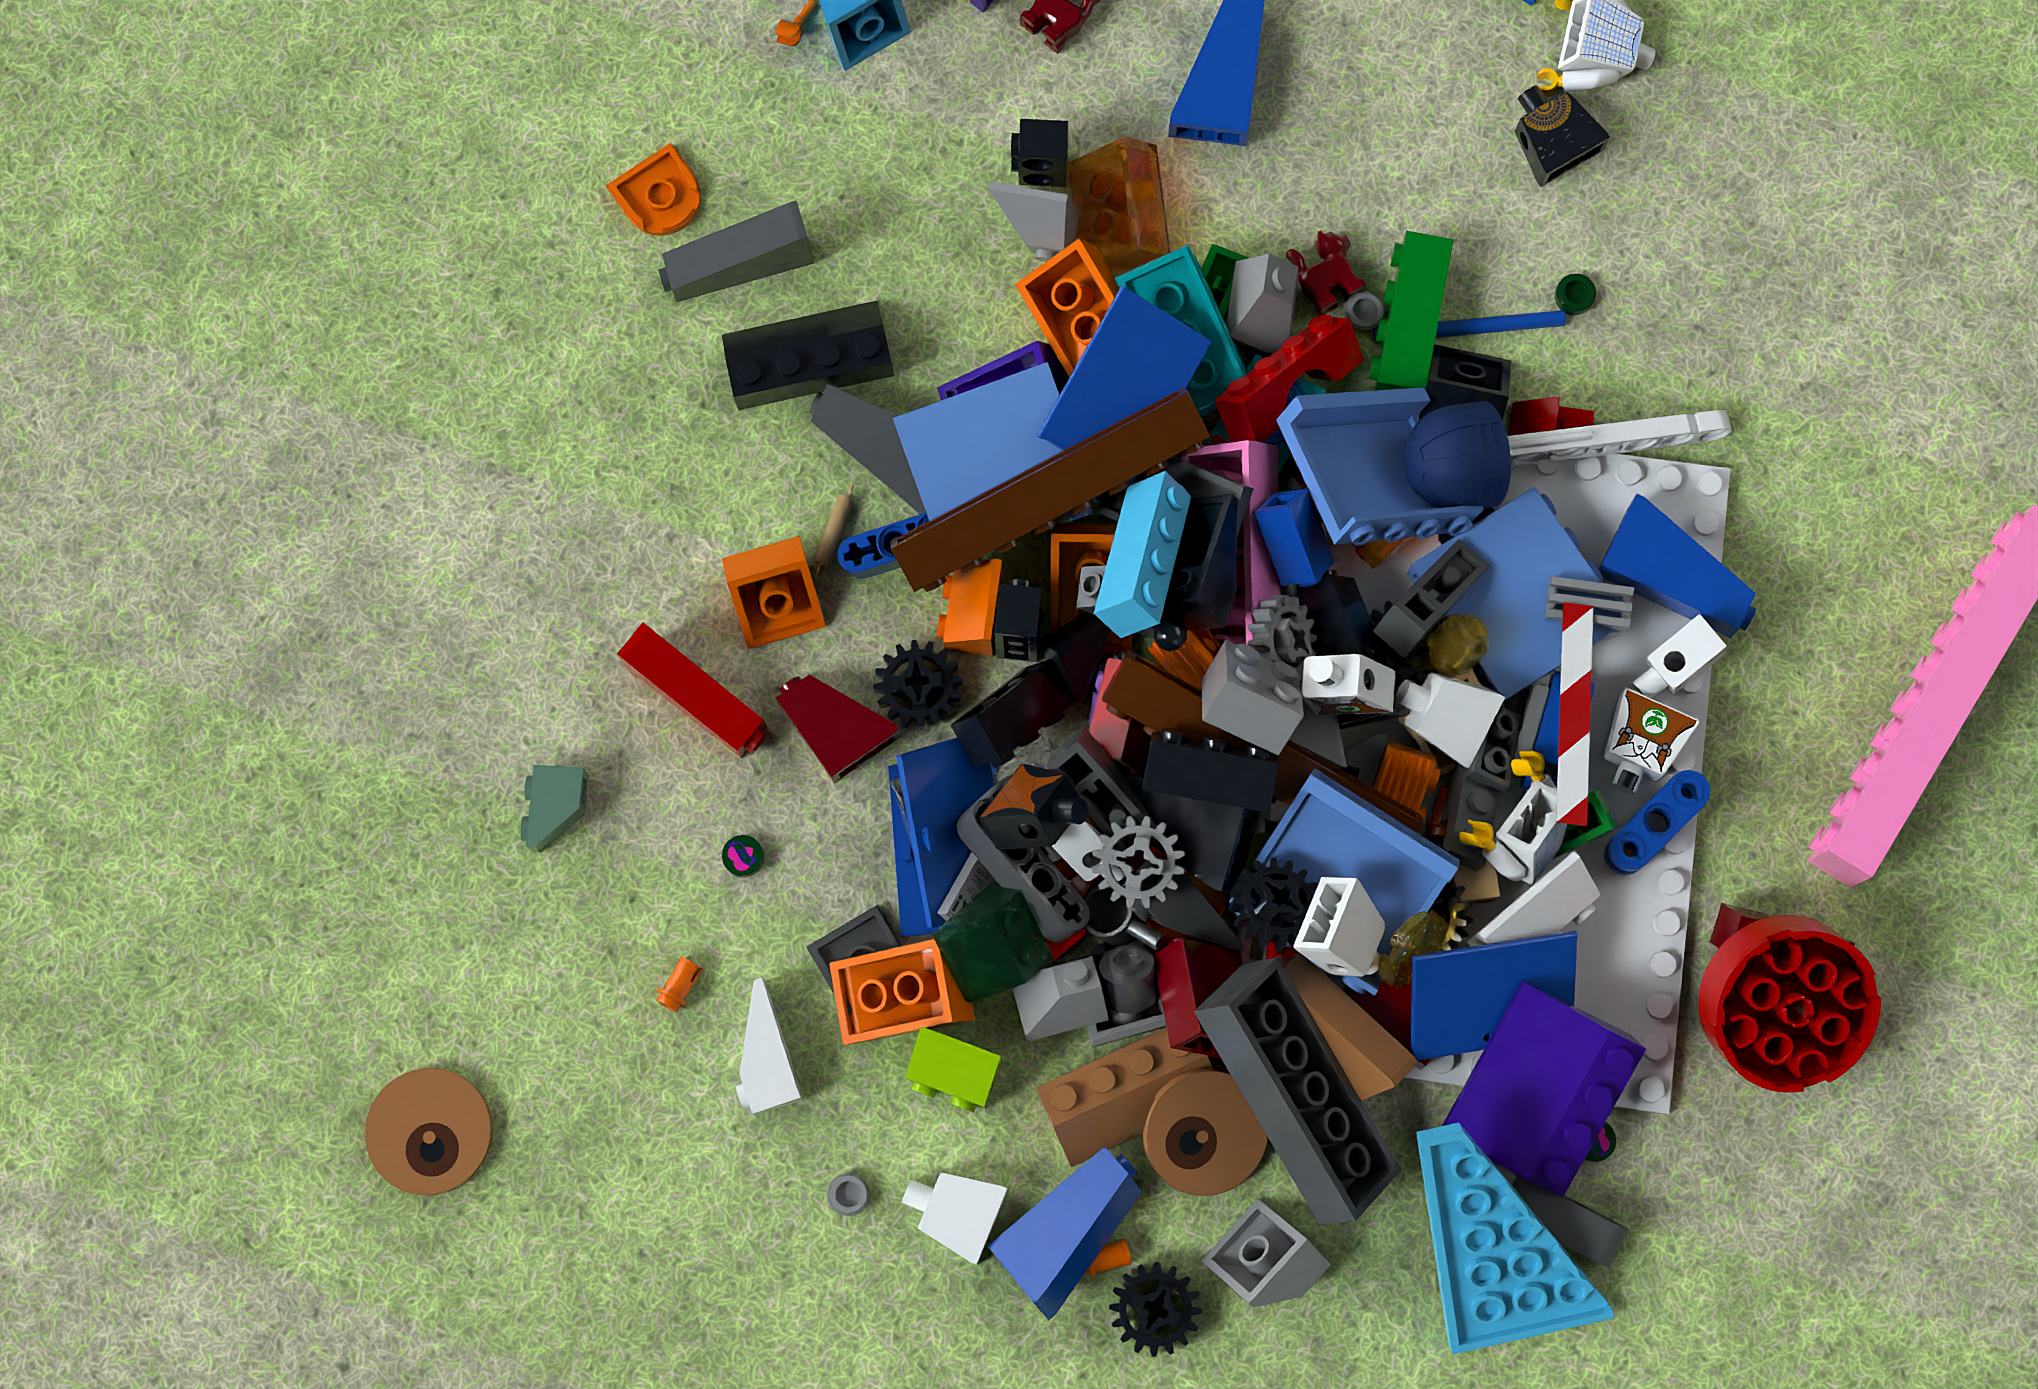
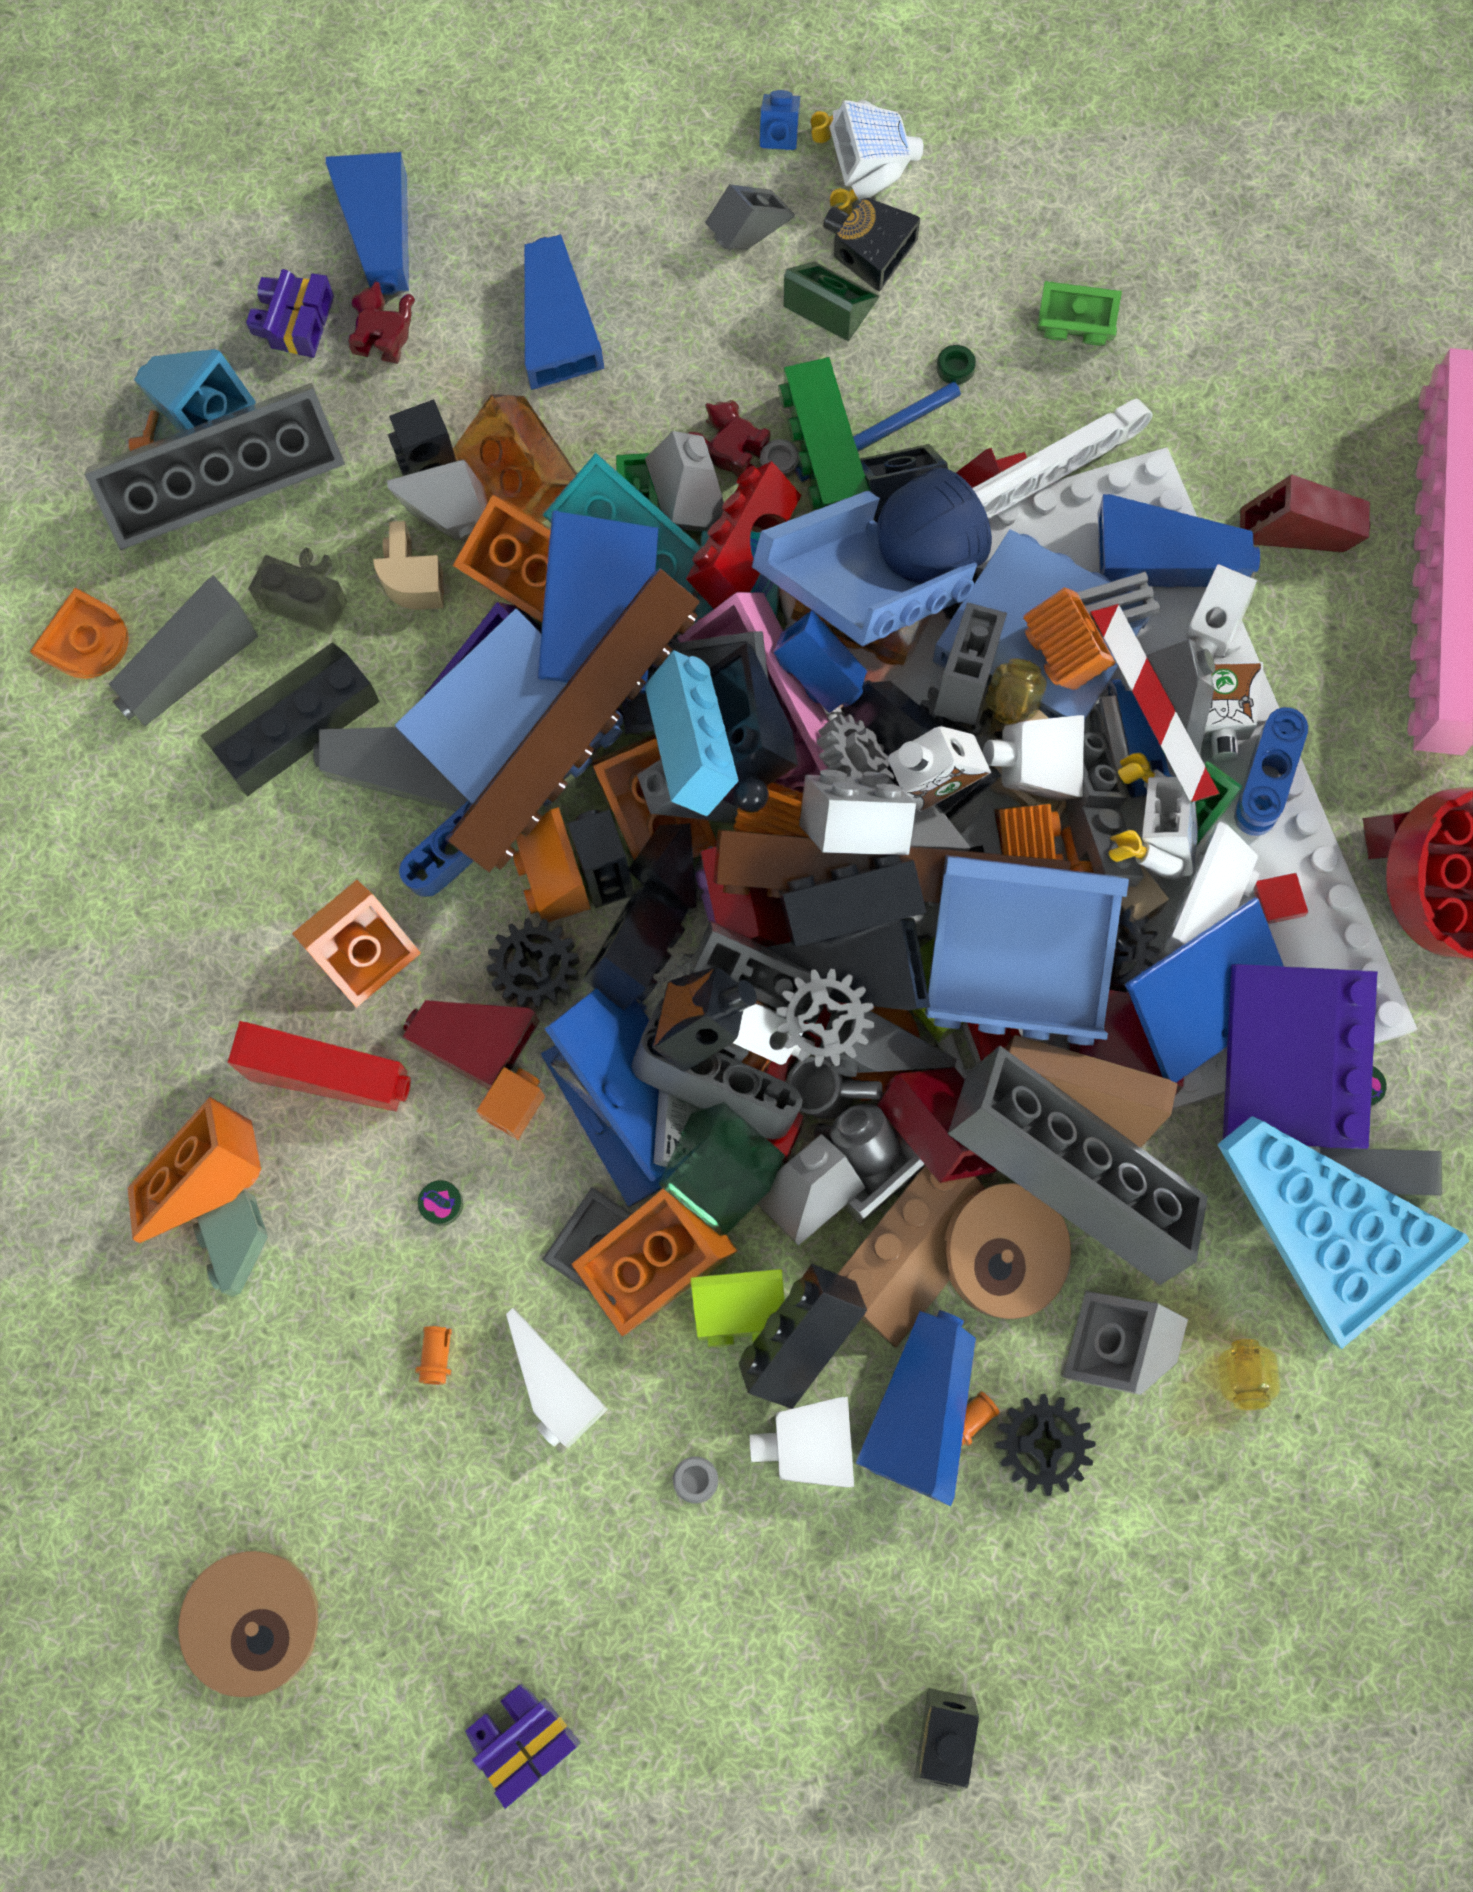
camera: 25 degrees left, 5 degrees down
(548, 731) = (195, 1171): none -> orange slope
(587, 1339) = (524, 1751): none -> dark purple hips
(834, 531) = (388, 862): tan piece -> none
(843, 798) = (512, 1101): none -> orange brick
(845, 88) = (214, 466): none -> dark grey brick
(868, 242) = (299, 592): none -> clear smoke brick
(970, 275) = (409, 579): none -> tan brick
(992, 1119) = (802, 1336): none -> black brick
(1263, 887) = (974, 996): black gear -> none
(1341, 929) = (1048, 988): white torso -> none
(1359, 1336) = (1248, 1375): none -> clear yellow head
(1416, 936) = (1118, 965): clear yellow tile -> none
(1451, 57) = (746, 216): none -> dark grey slope
(1487, 173) = (827, 298): none -> dark green slope
(1528, 619) = (1067, 640): none -> orange brick
(1605, 940) = (1281, 898): none -> red tile
(1615, 714) = (1188, 682): none -> dark grey slope
(1715, 297) = (1078, 312): none -> bright green bracket
(1821, 599) = (1306, 517): none -> dark red slope

